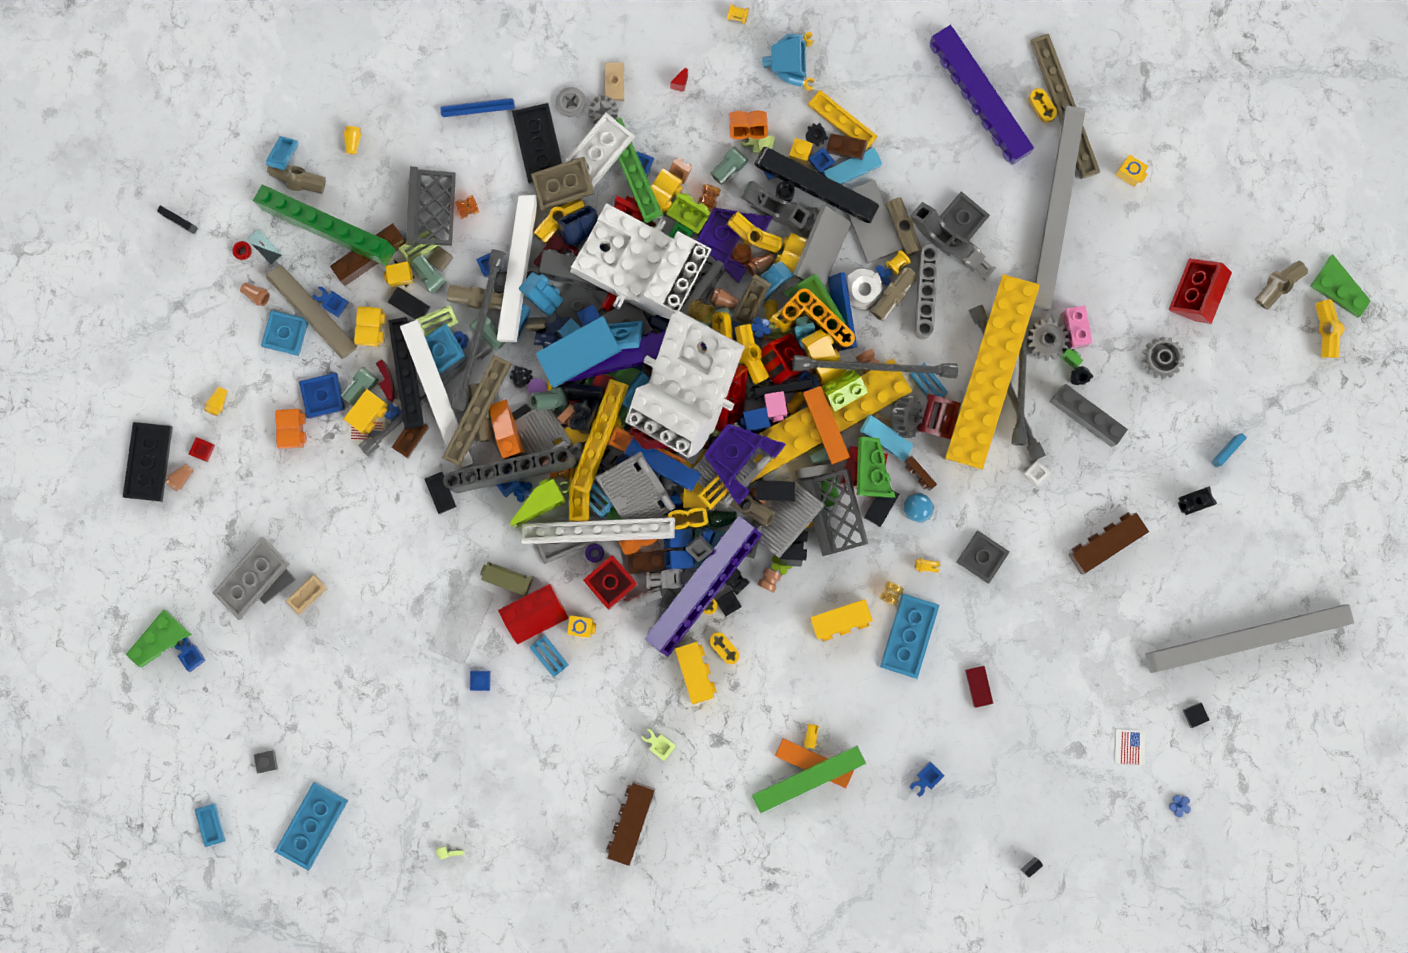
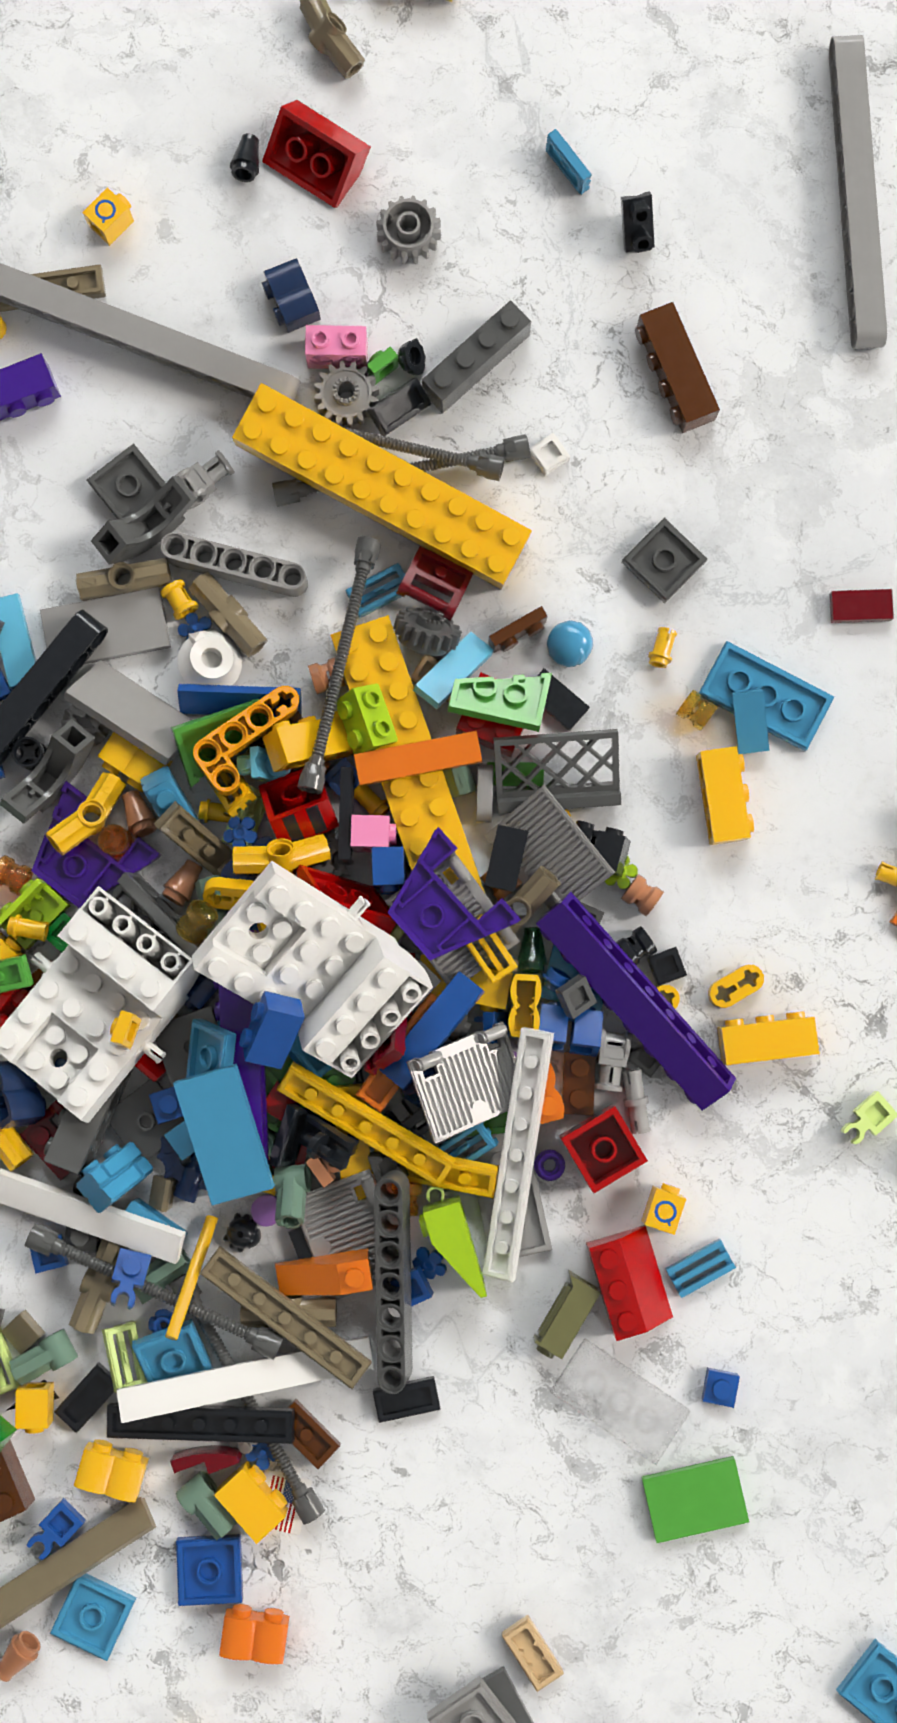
camera: 80 degrees left, 0 degrees up
(411, 676) = (695, 1499): none -> bright green tile
(487, 314) = (129, 1273): none -> blue plate
(490, 350) = (191, 1278): none -> yellow bar
(629, 281) = (125, 1029): none -> yellow plate
(645, 367) = (272, 1029): none -> blue brick
(678, 212) = (27, 928): none -> yellow pin
(890, 628) = (750, 721): none -> dark azure tile
(1046, 373) = (399, 406): none -> black tile
(1105, 293) = (291, 295): none -> dark blue brick
(1187, 248) = (246, 159): none -> black cone

